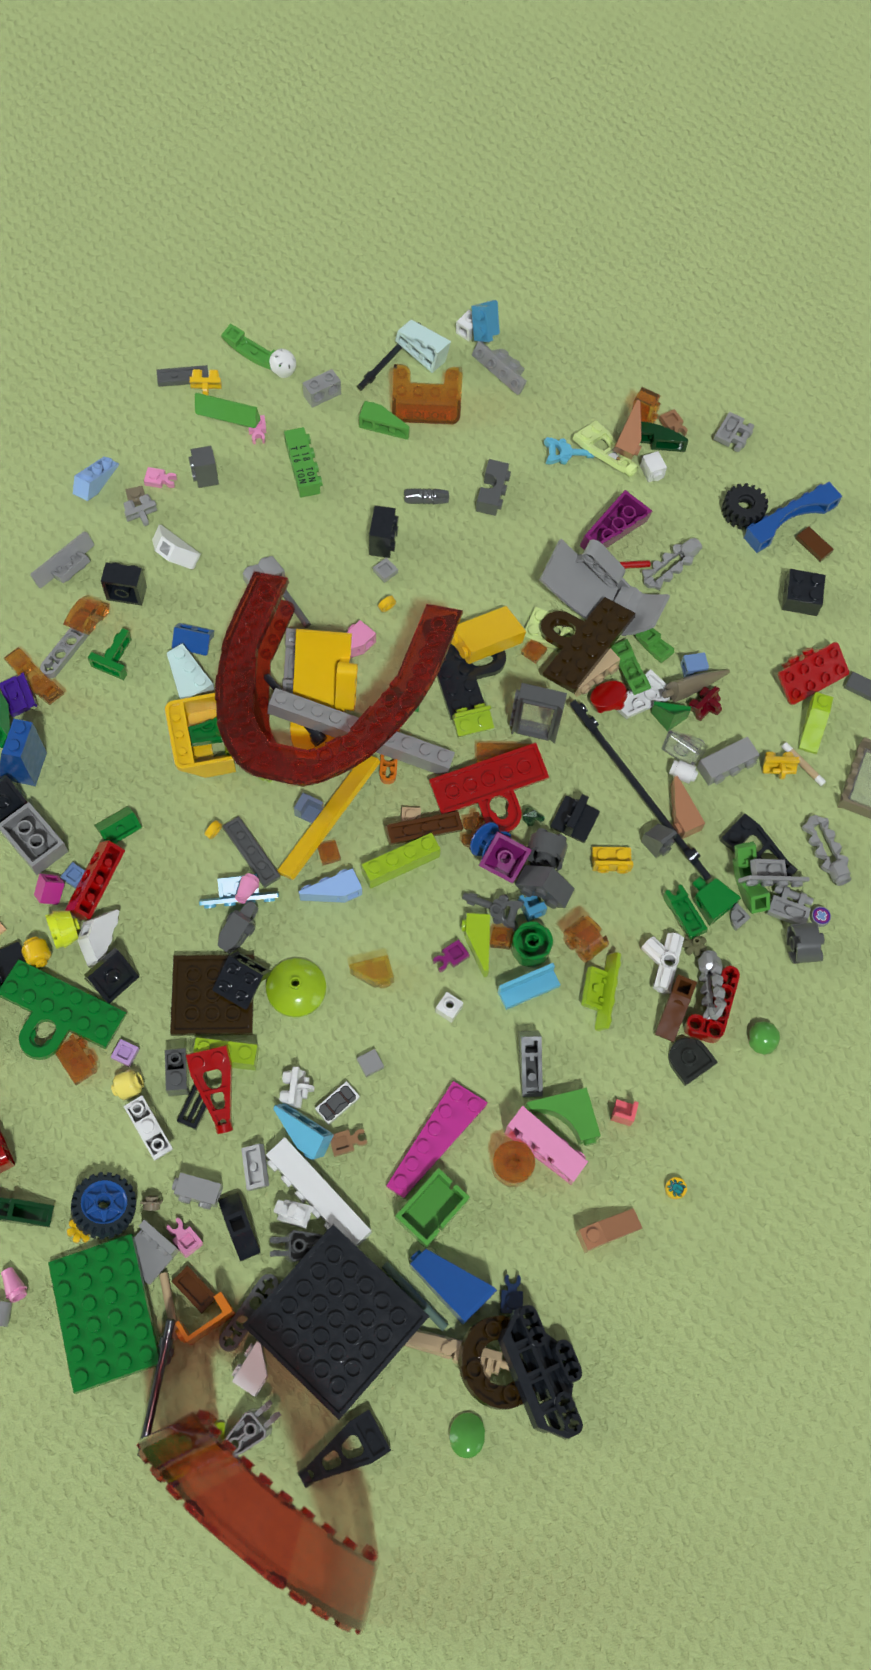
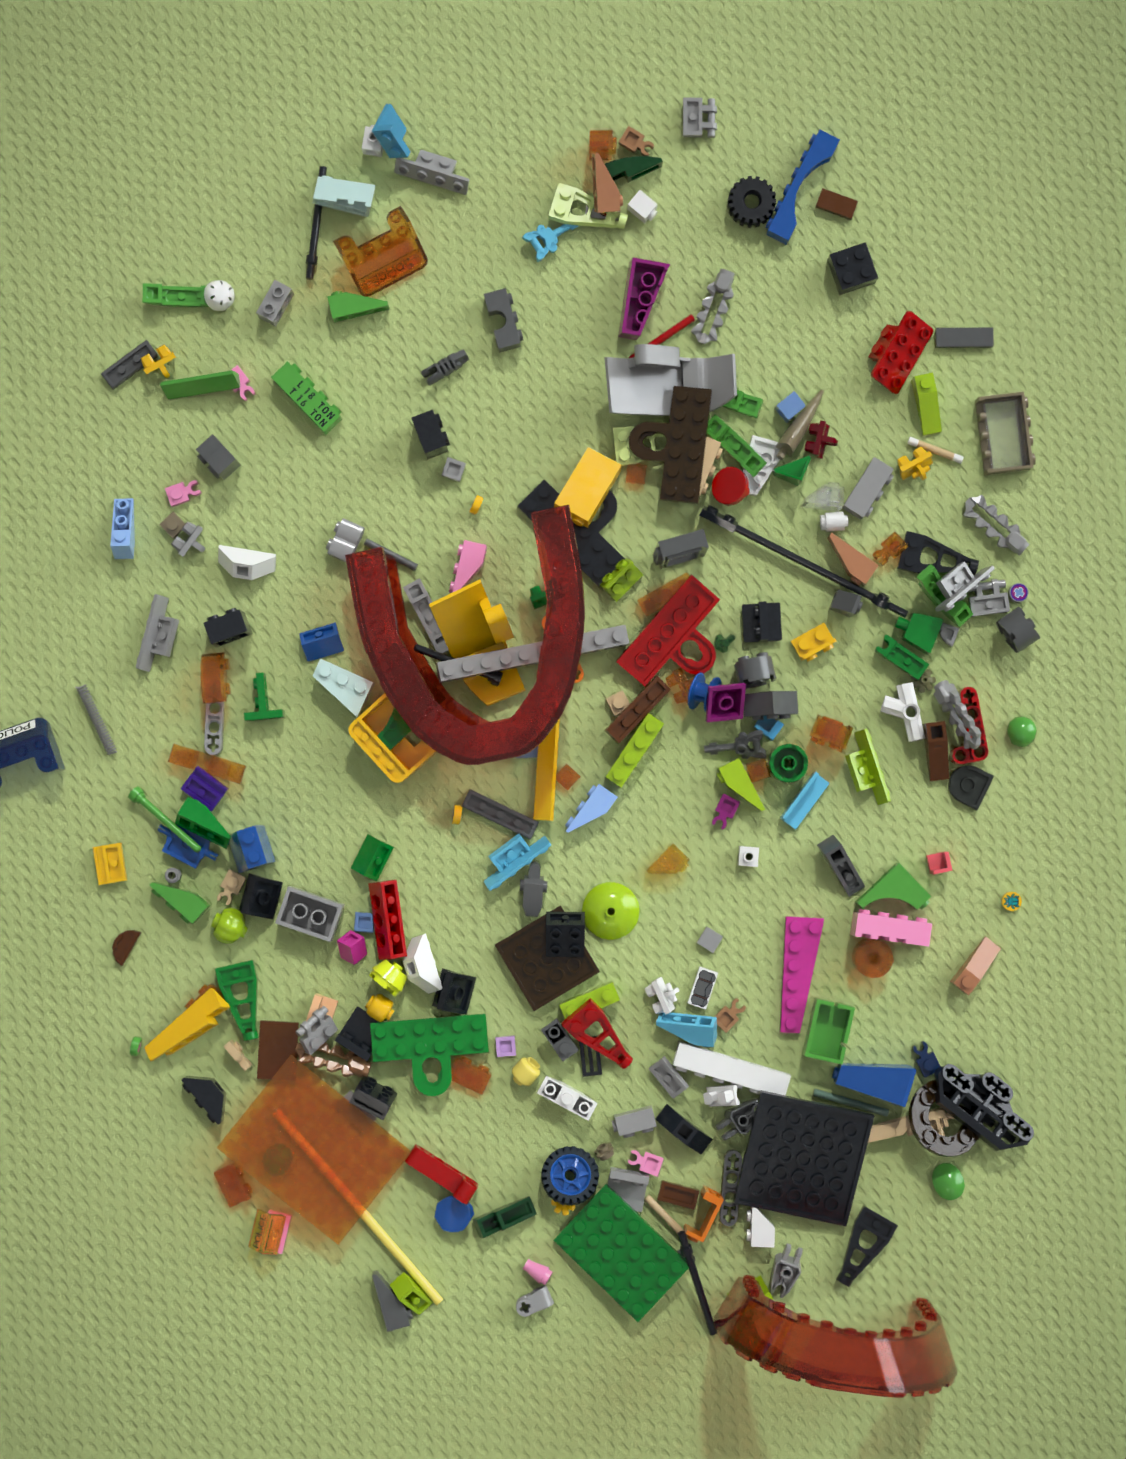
camera: 25 degrees left, 20 degrees up
(247, 887) = (521, 854): bright pink cone -> none
(724, 818) = (892, 547): none -> clear orange plate

